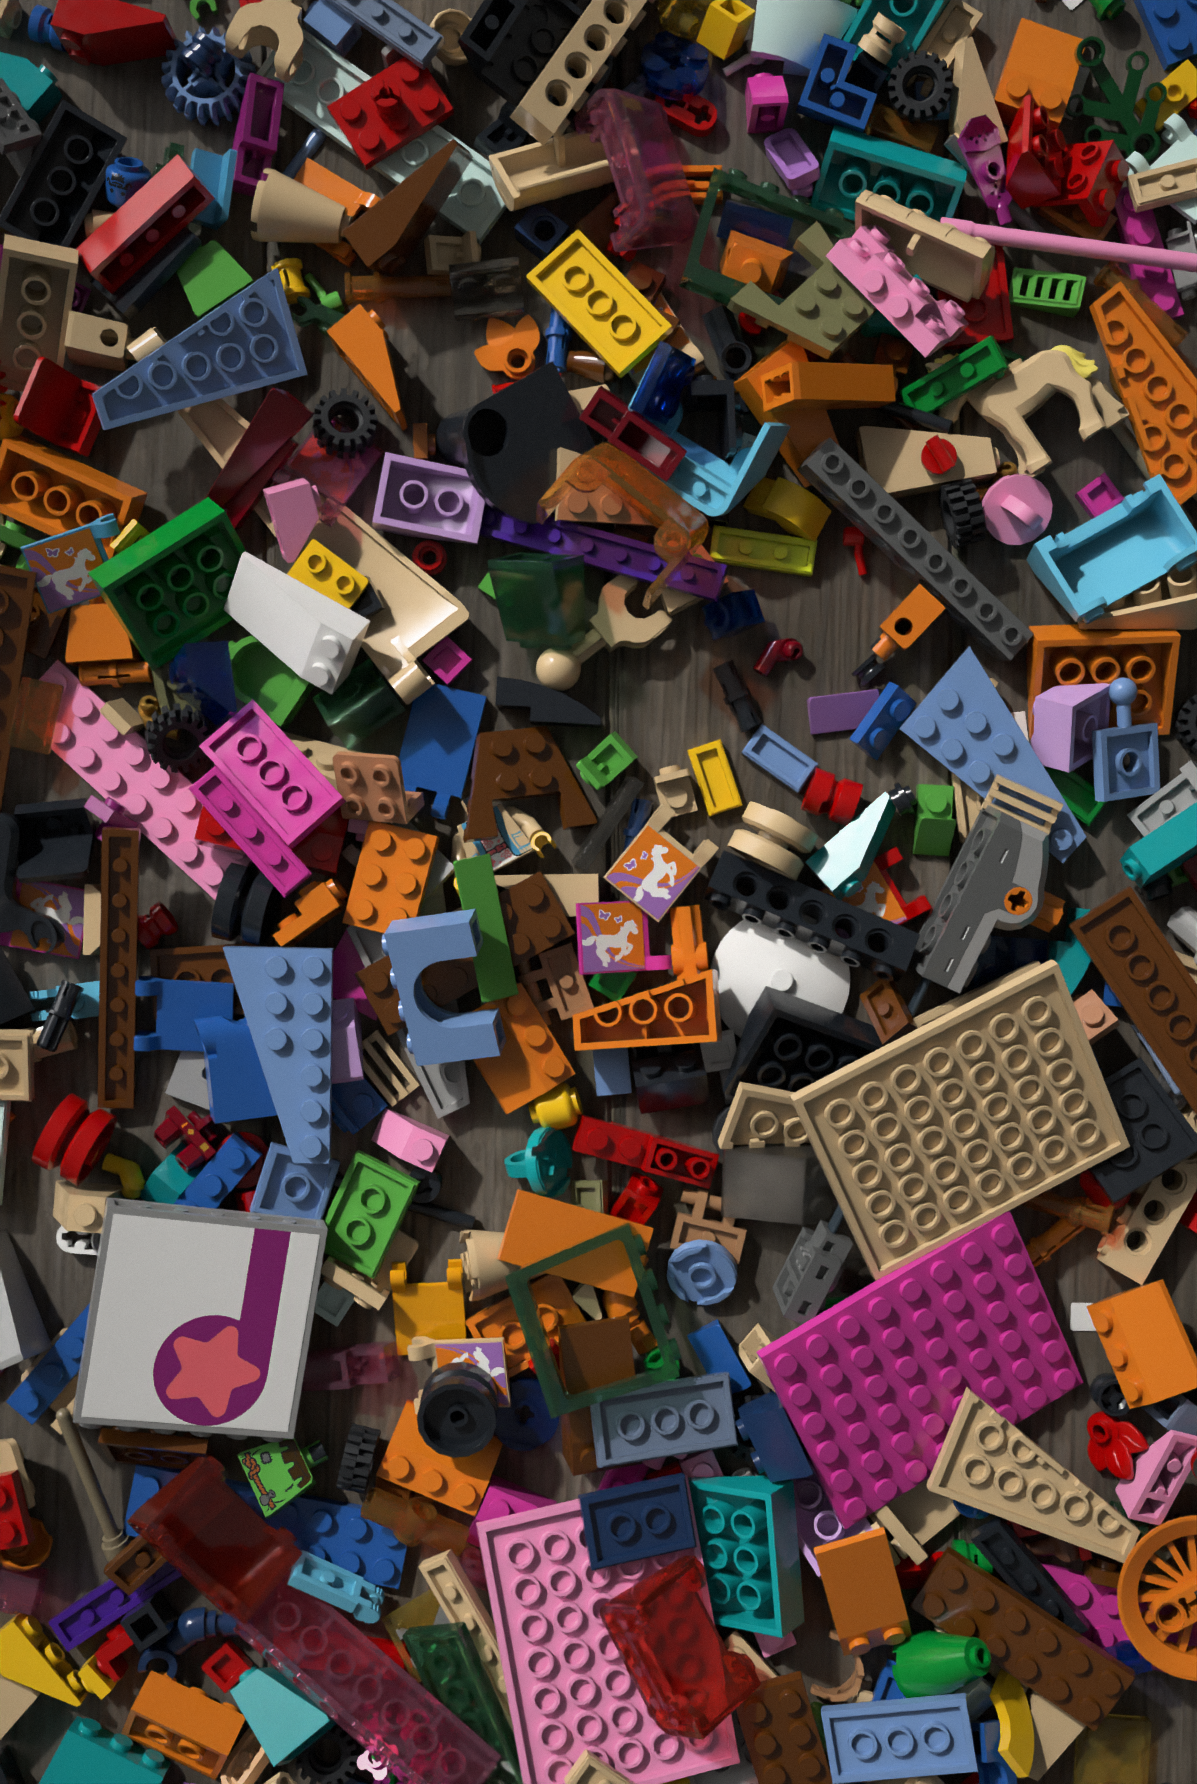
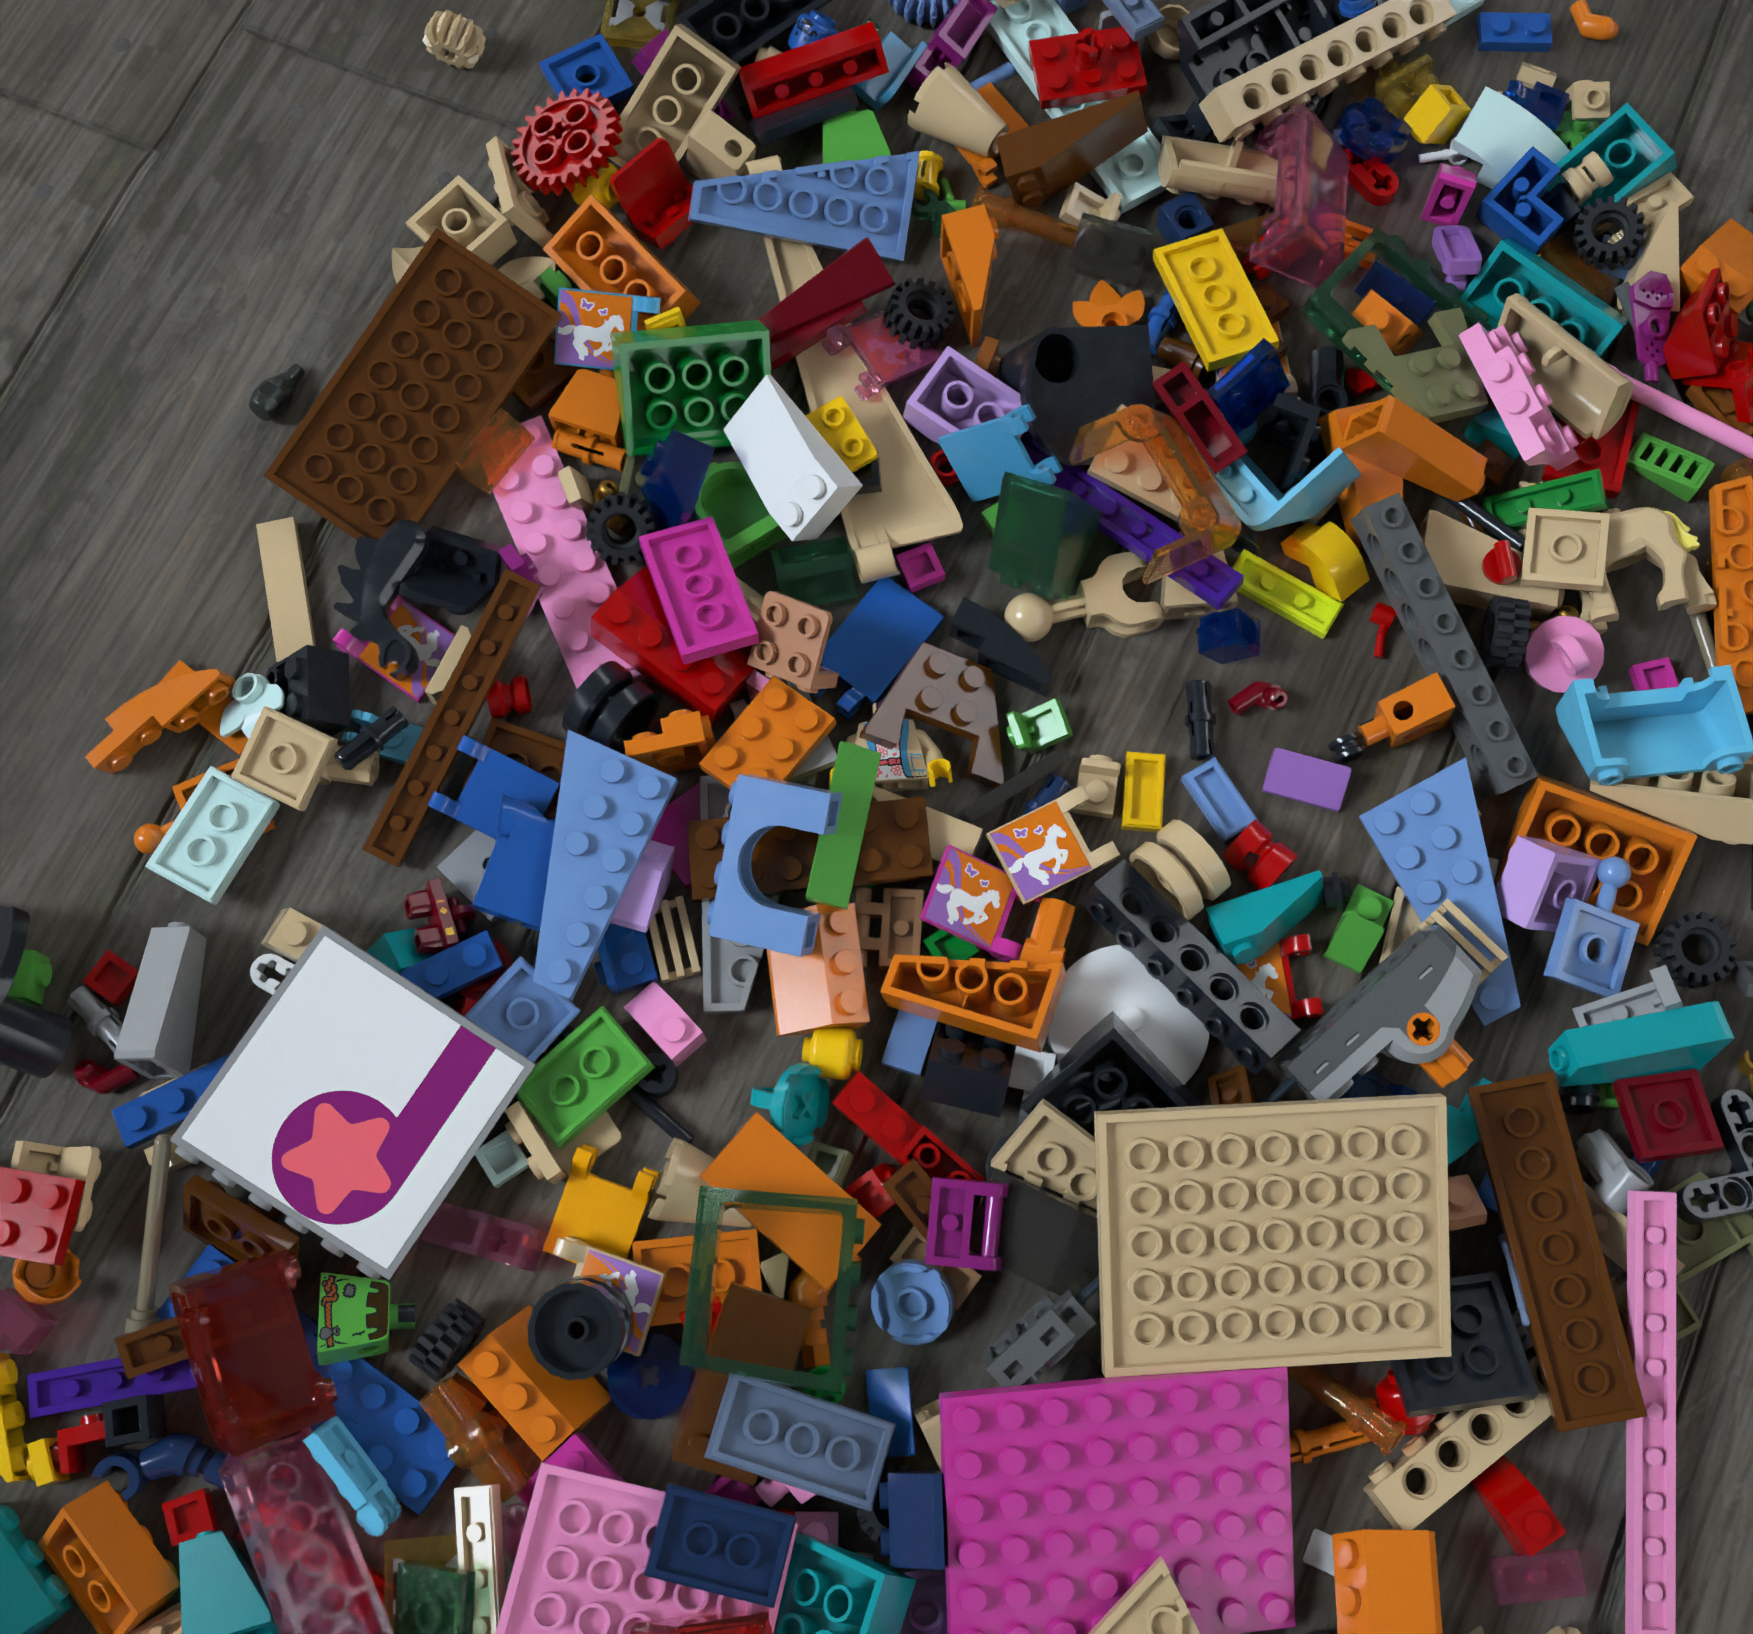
camera: 20 degrees right, 15 degrees down
(74, 1139) = (322, 867): red wheel -> none
(129, 1173) = (359, 929): yellow arm -> none
(250, 831) = (650, 632): dark pink tile -> none
(293, 514) = (832, 366): bright pink slope -> none
(469, 539) = (991, 448): none -> dark azure flag
(680, 1199) = (912, 1193): none -> reddish brown plate
(708, 1207) = (952, 1219): none -> magenta plate
(883, 720) = (1343, 804): blue plate -> none
(987, 421) = (1565, 549): none -> tan plate
(1077, 794) = (1526, 964): green tile -> none

